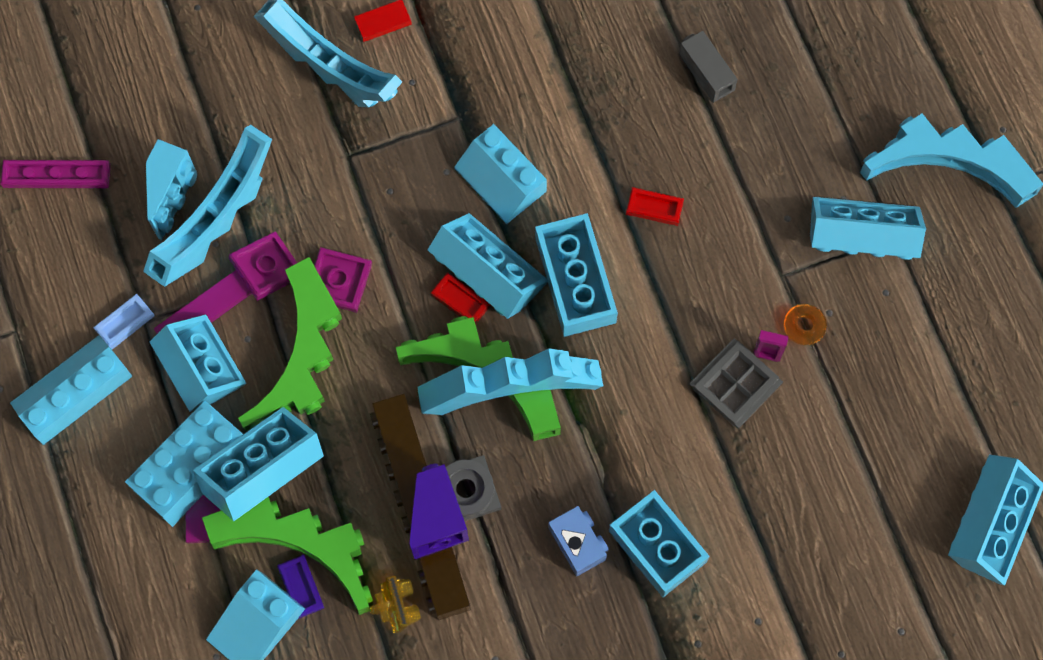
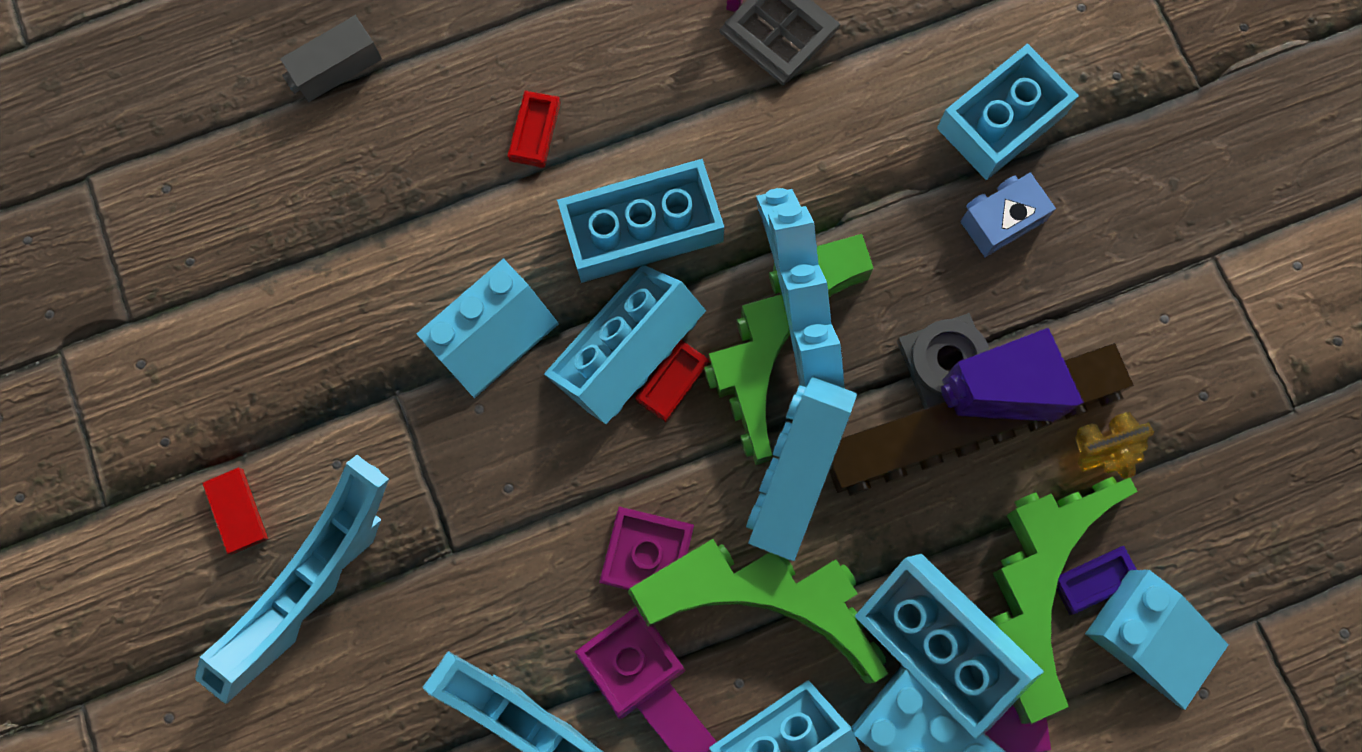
camera: 90 degrees left, 5 degrees up
(384, 368) = (799, 474): none -> medium azure brick

